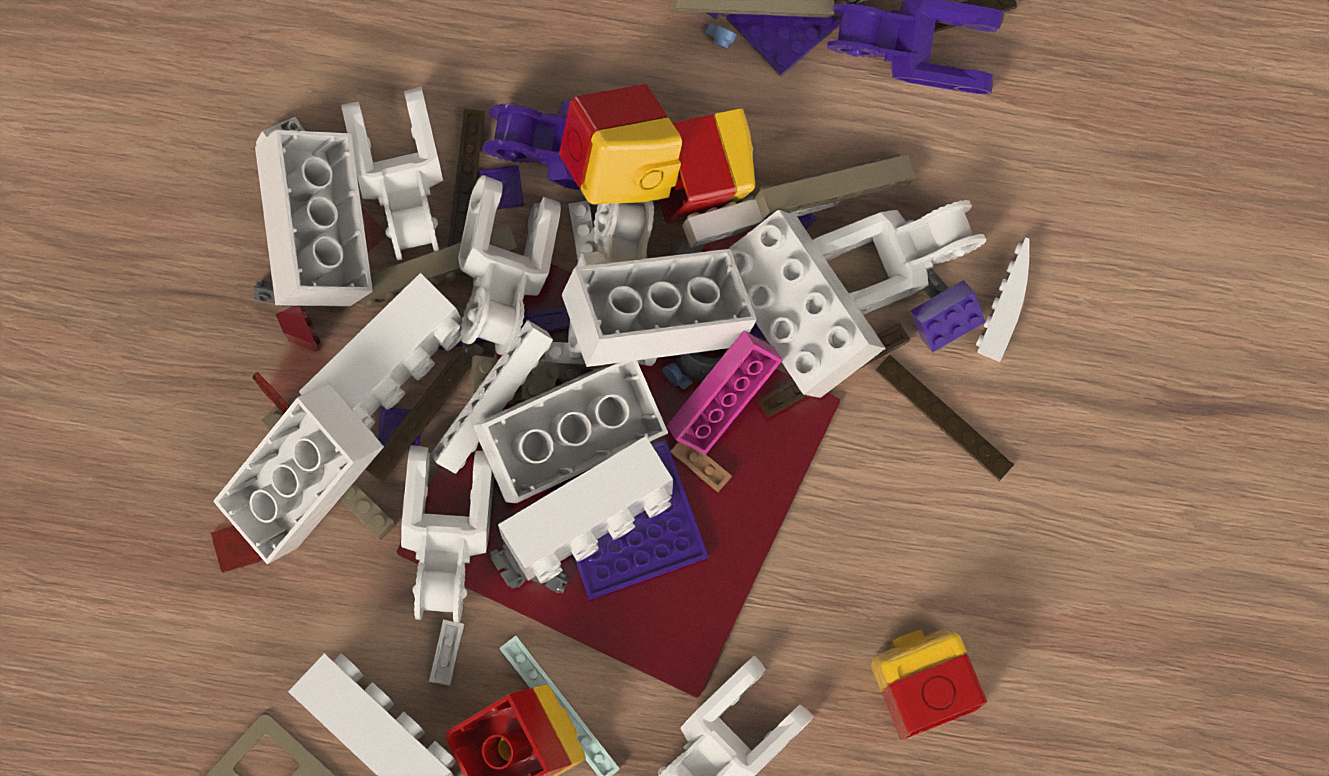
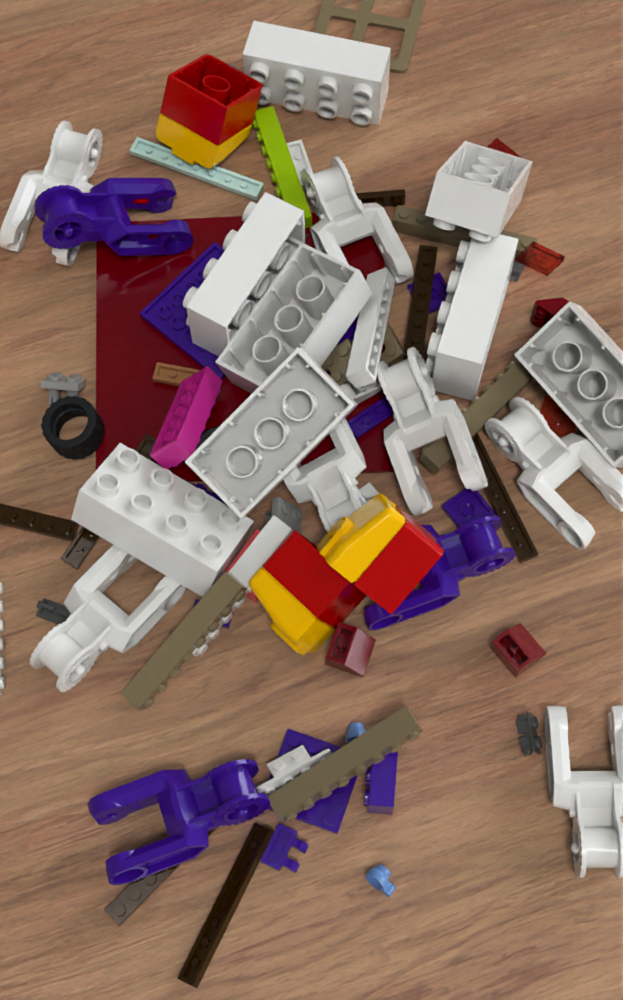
camera: 155 degrees right, 10 degrees down
(389, 562) = (383, 198): none -> dark brown plate
(471, 648) = (280, 161): none -> lime brick
(536, 33) = (517, 649): none -> dark red slope
(688, 105) = (350, 650): none -> dark red slope
(692, 665) = (102, 216): none -> dark purple arm
(797, 33) = (289, 767): none -> white bracket
(822, 517) = (59, 382): none -> light grey plate
(856, 448) = (59, 414): none -> black tyre
(948, 316) = (34, 586): dark purple brick -> none

